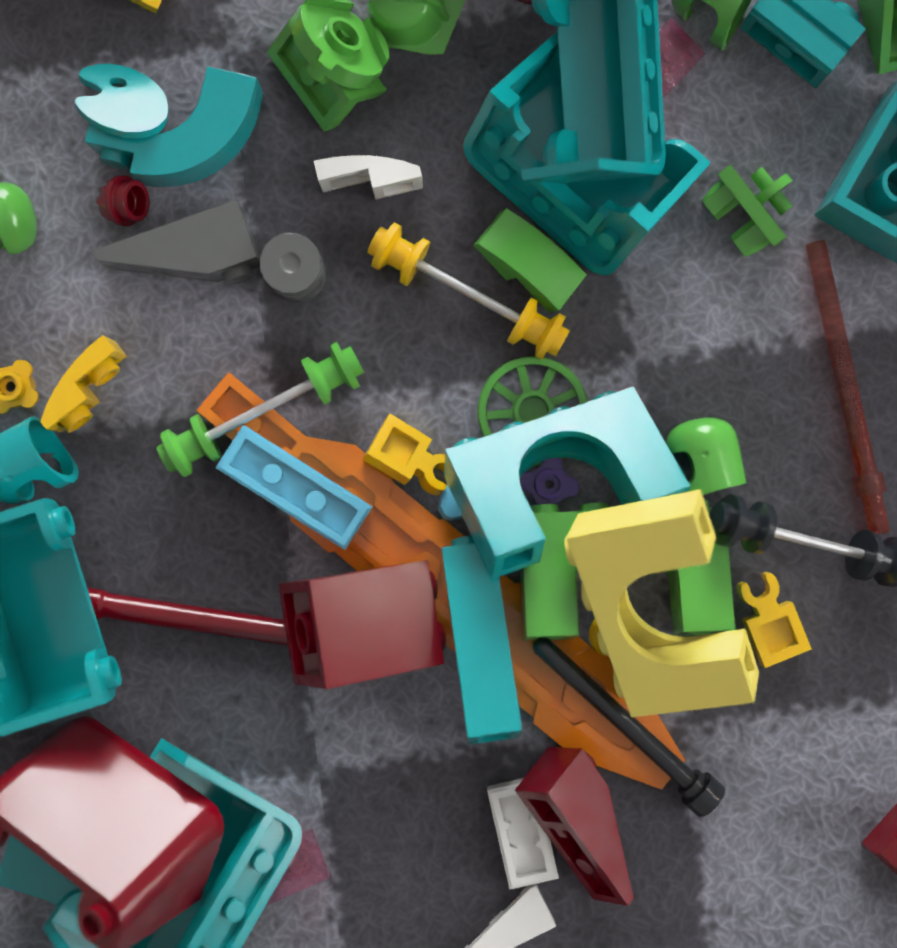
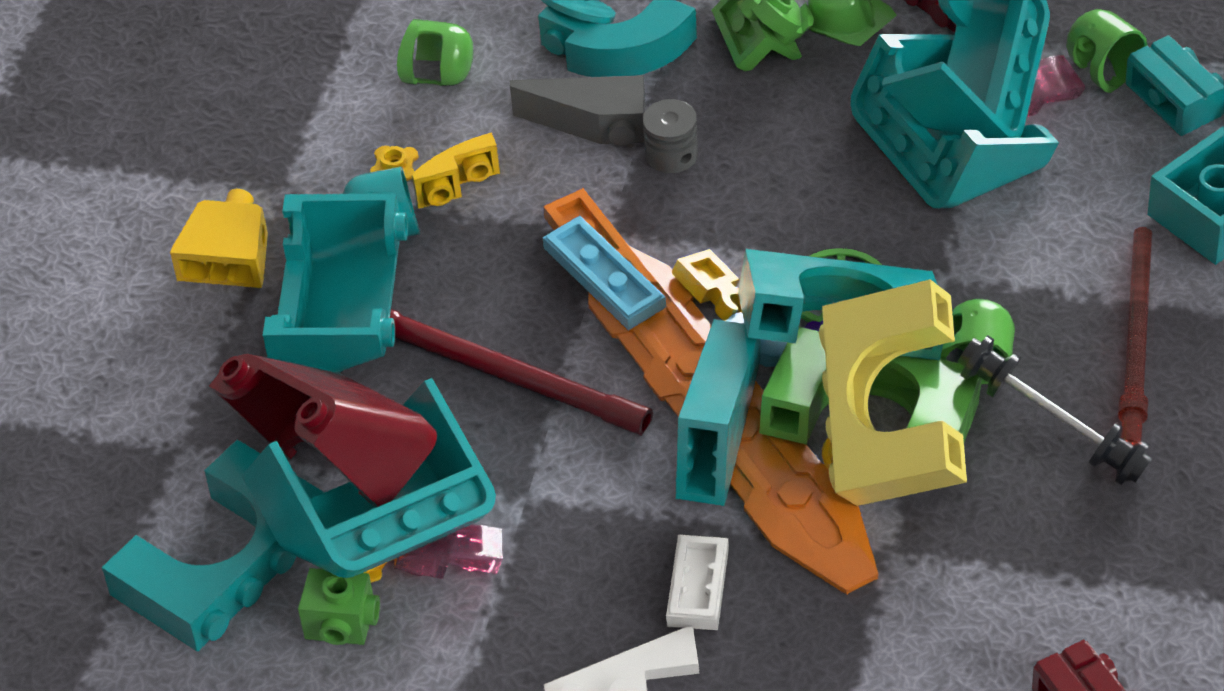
camera: 25 degrees right, 40 degrees down
(123, 200) = (549, 64): dark red plate -> none
(199, 441) = (663, 208): bright green axle -> none
(362, 625) = (619, 360): dark red slope -> none
(386, 174) = (755, 90): white slope -> none
(391, 249) = (854, 218): yellow axle -> none
(527, 254) = (881, 180): bright green slope -> none
(579, 819) = (755, 573): dark red slope -> none
(699, 790) = (880, 591): black piece -> none
(733, 191) = (1104, 180): bright green hips -> none
(774, 627) = (1001, 485): yellow plate -> none

